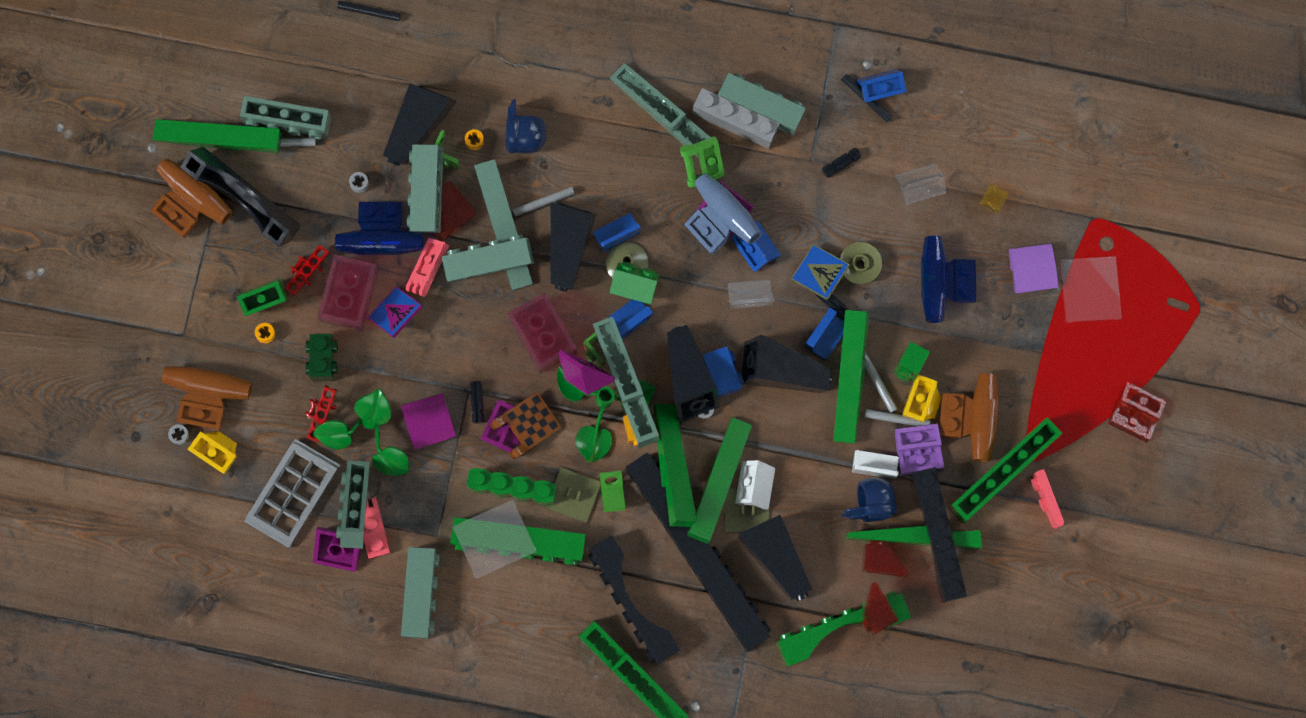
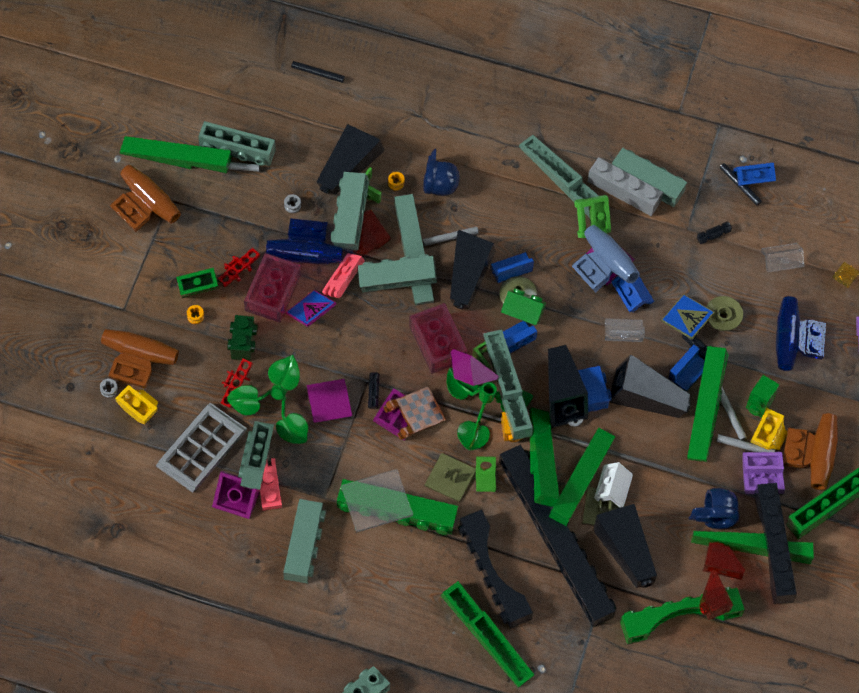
camera: 10 degrees right, 15 degrees down
(269, 217) = (208, 217): black arch -> none
(505, 486) = (389, 458): green brick -> none
(875, 464) = (721, 479): white panel -> none

